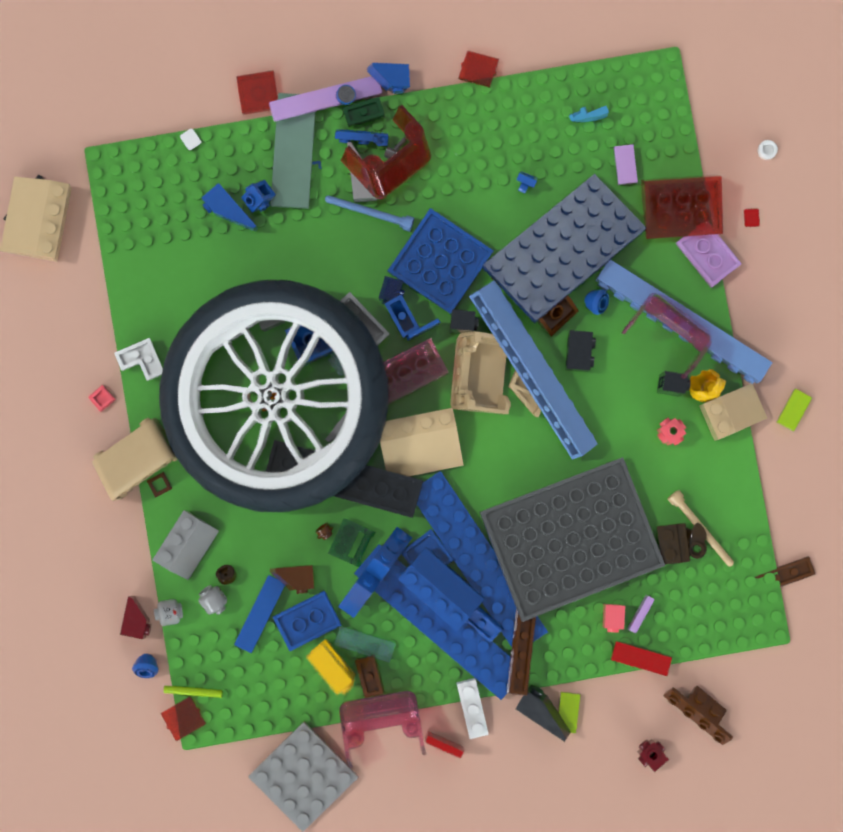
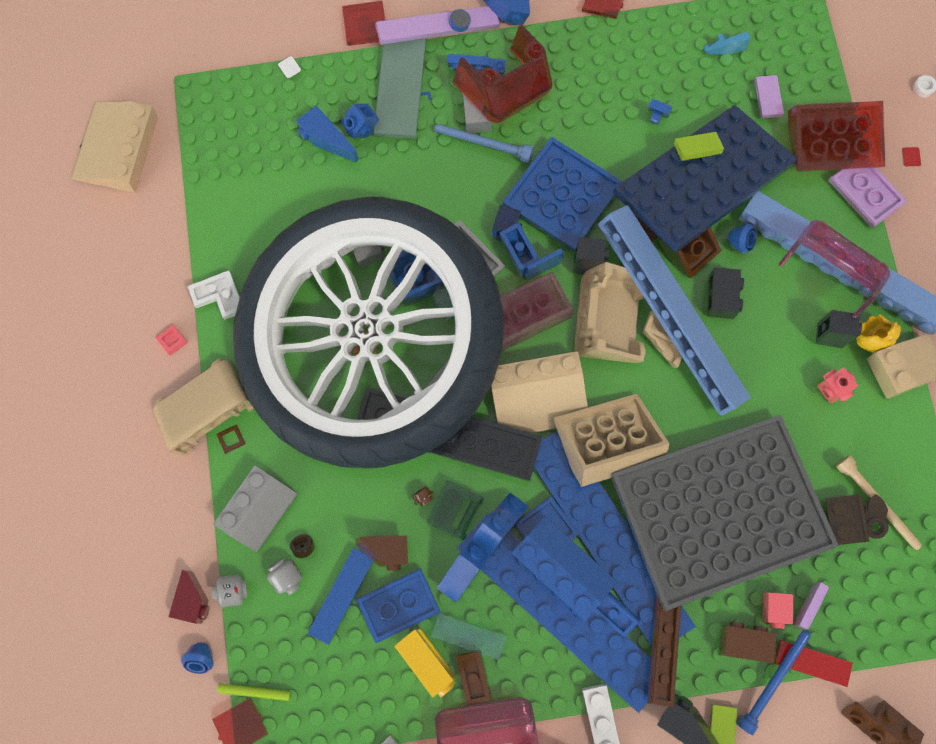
camera: 10 degrees right, 10 degrees down
(363, 112) = (479, 39): dark green plate -> none
(479, 480) = (609, 438): none -> tan slope
(558, 221) = (698, 146): none -> lime tile
(588, 644) = (747, 643): none -> reddish brown brick
(589, 704) = (750, 720): none -> blue piece

